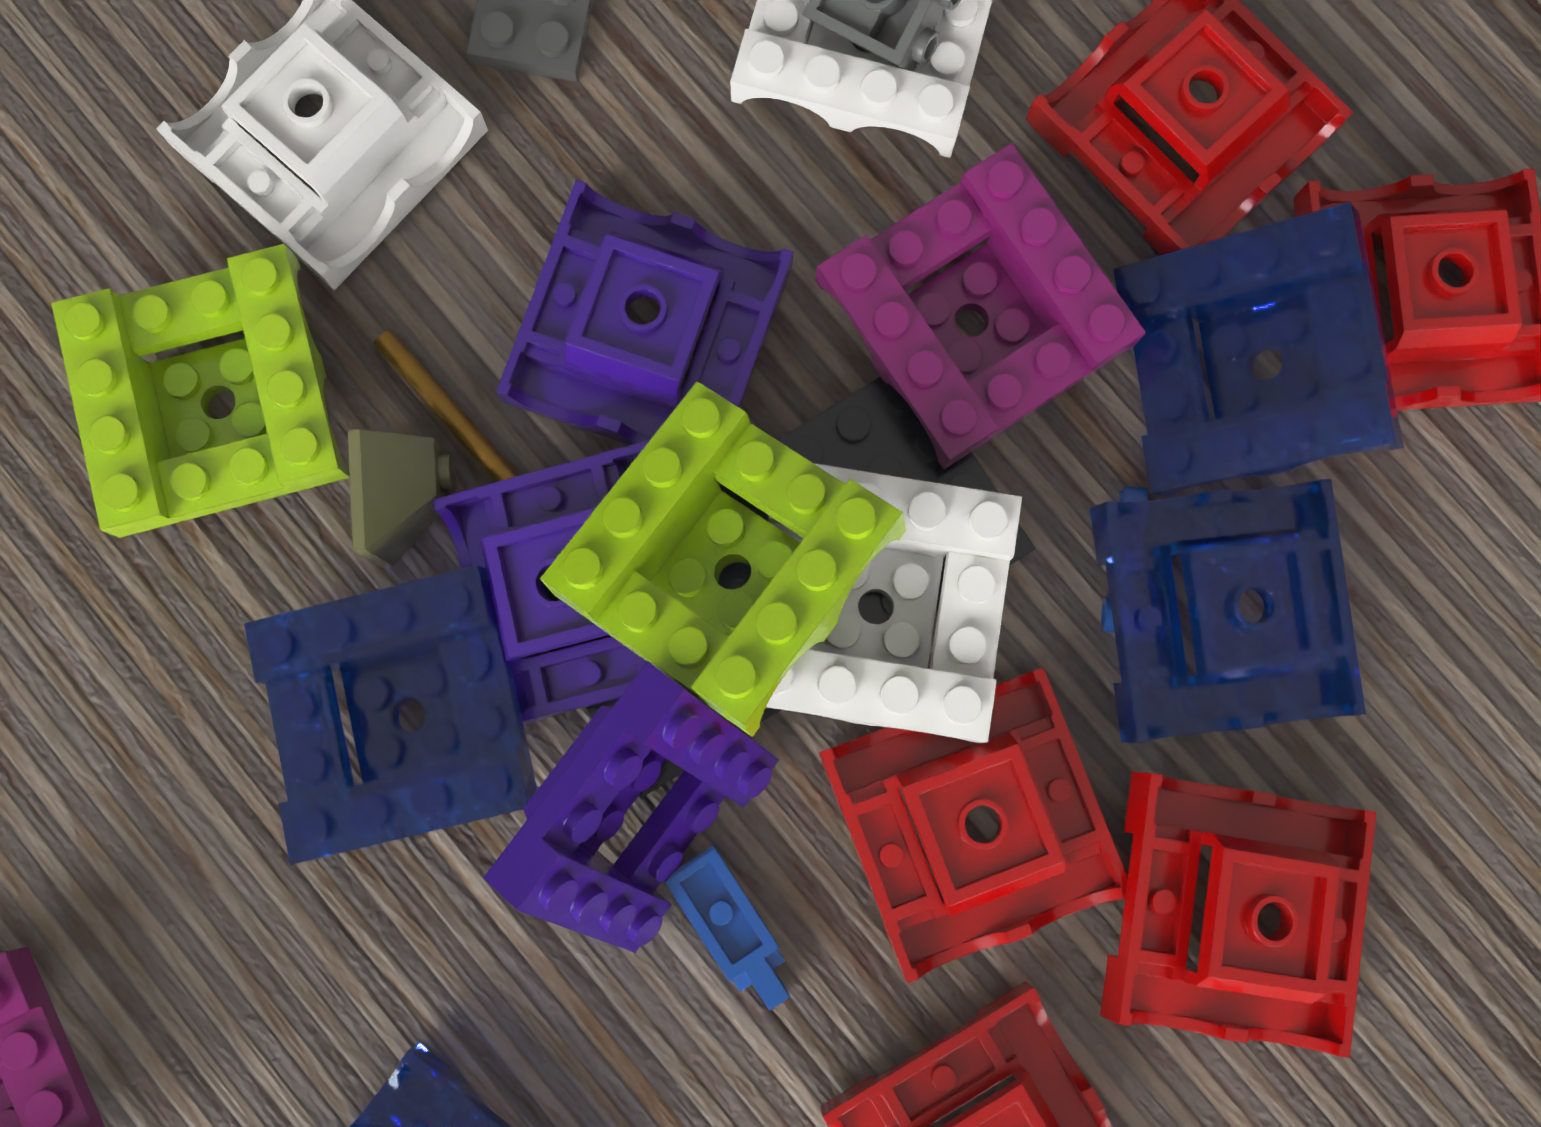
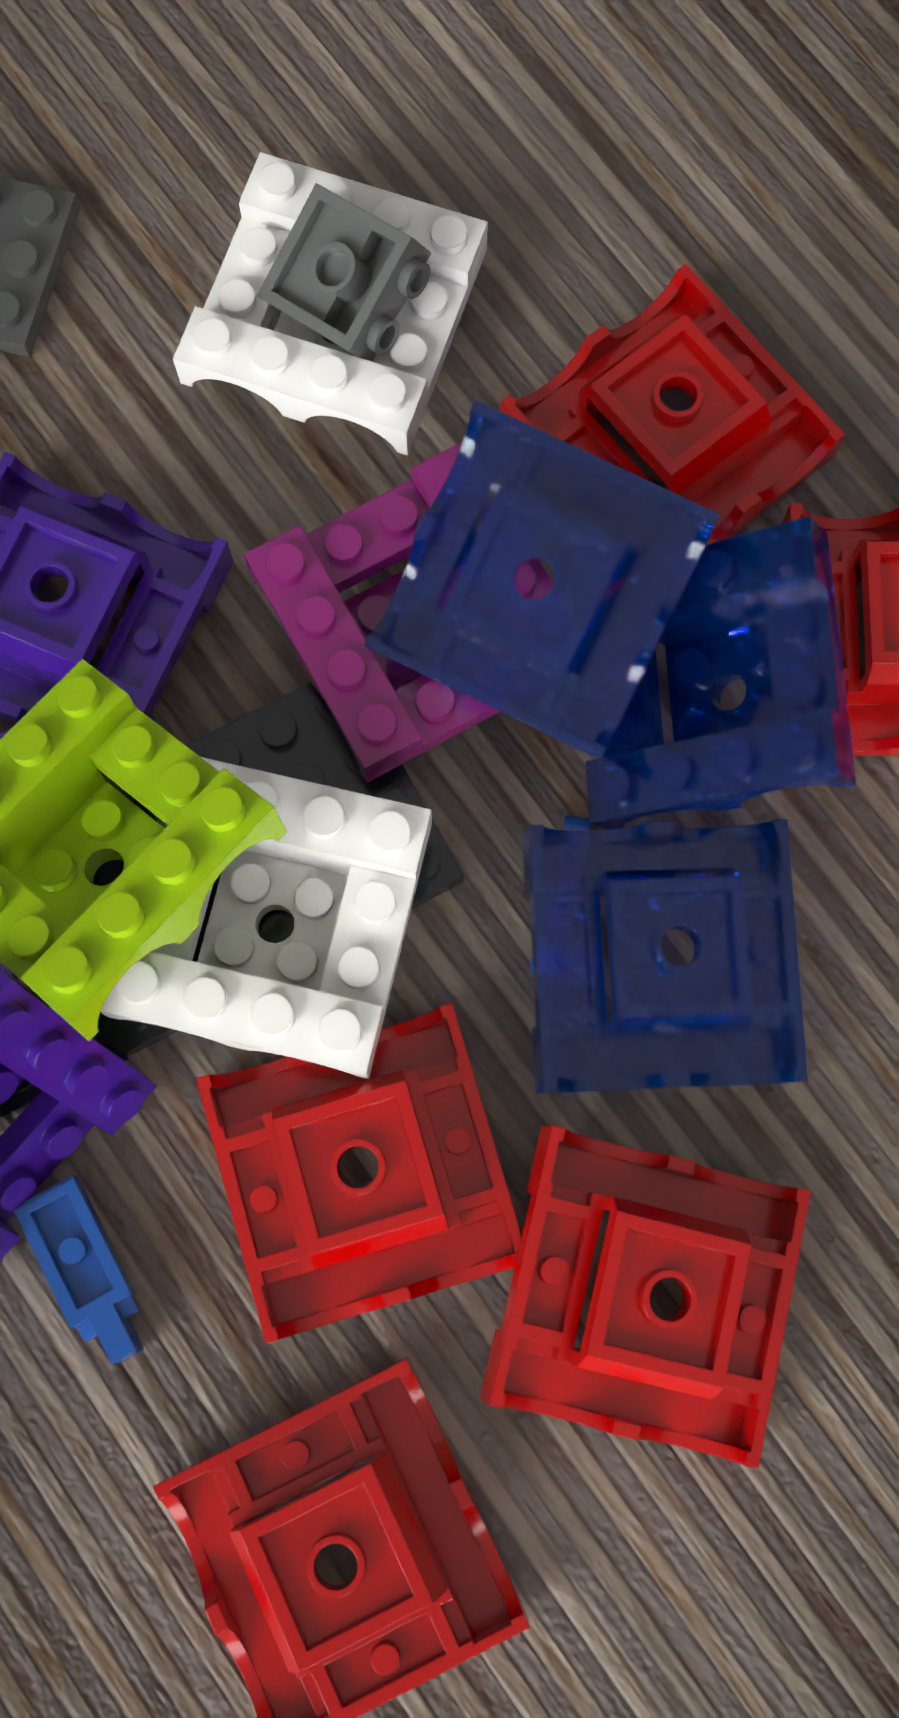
camera: 10 degrees right, 5 degrees down
(1060, 218) = (617, 565): none -> clear blue piece

